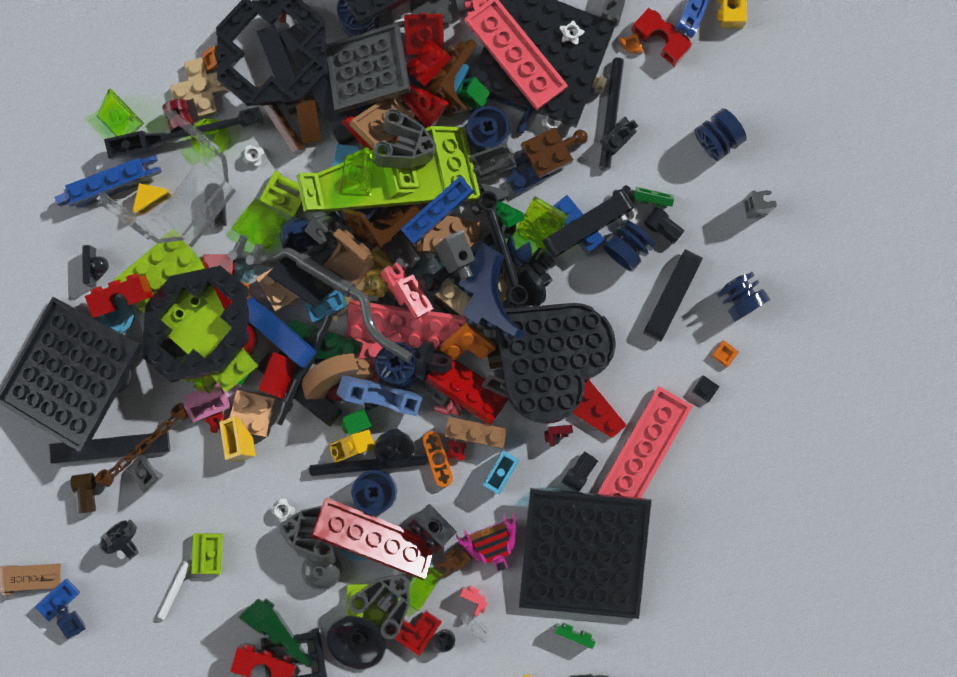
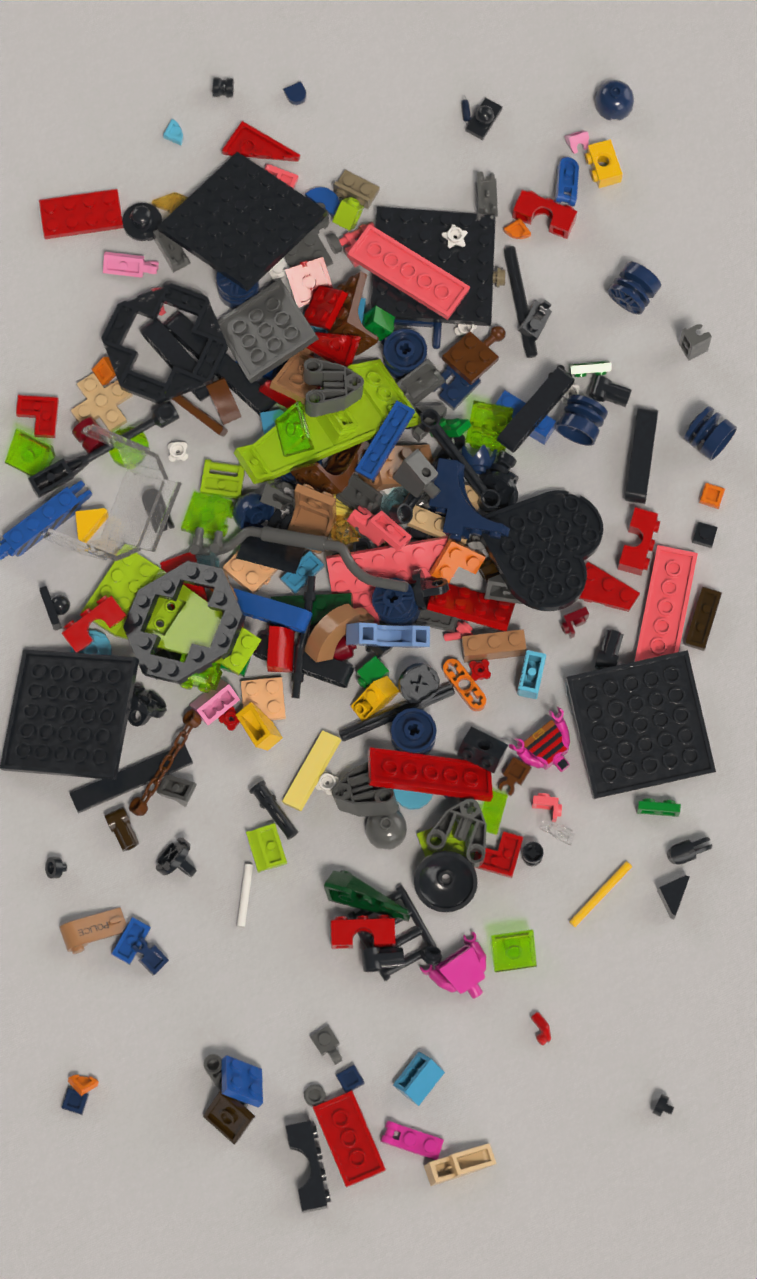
camera: 20 degrees left, 10 degrees down
(13, 509) = (55, 867): none -> black tile
(142, 385) = (148, 704): none -> black tile
(146, 79) = (43, 409): none -> red plate
(223, 510) = (266, 802): none -> black pin
(272, 494) = (311, 770): none -> light yellow tile
(653, 364) = (634, 558): none -> red arch
(676, 469) = (703, 618): none -> dark brown plate

